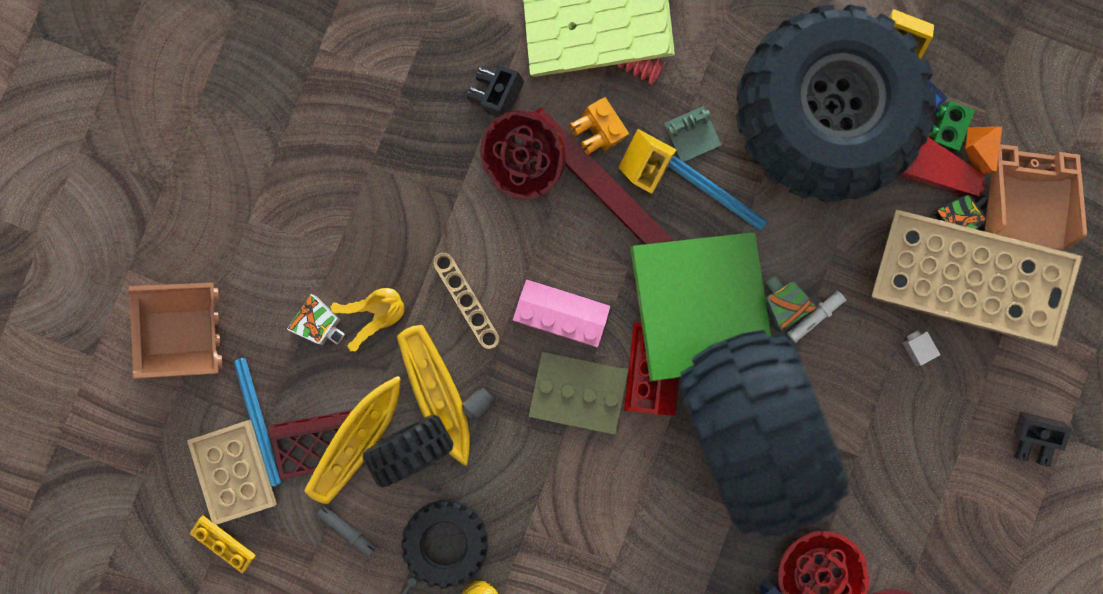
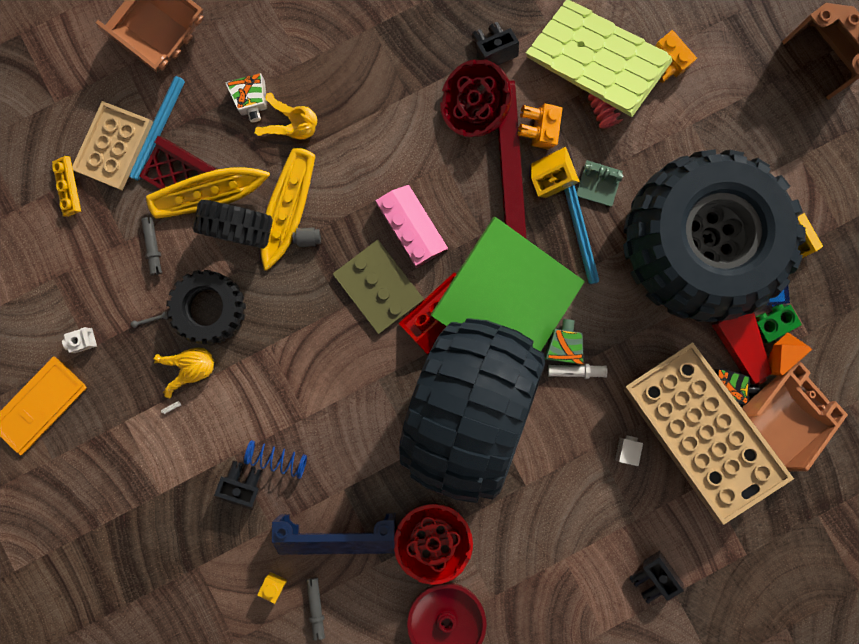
camera: 40 degrees right, 0 degrees up
(463, 290) = (354, 156): tan beam -> none

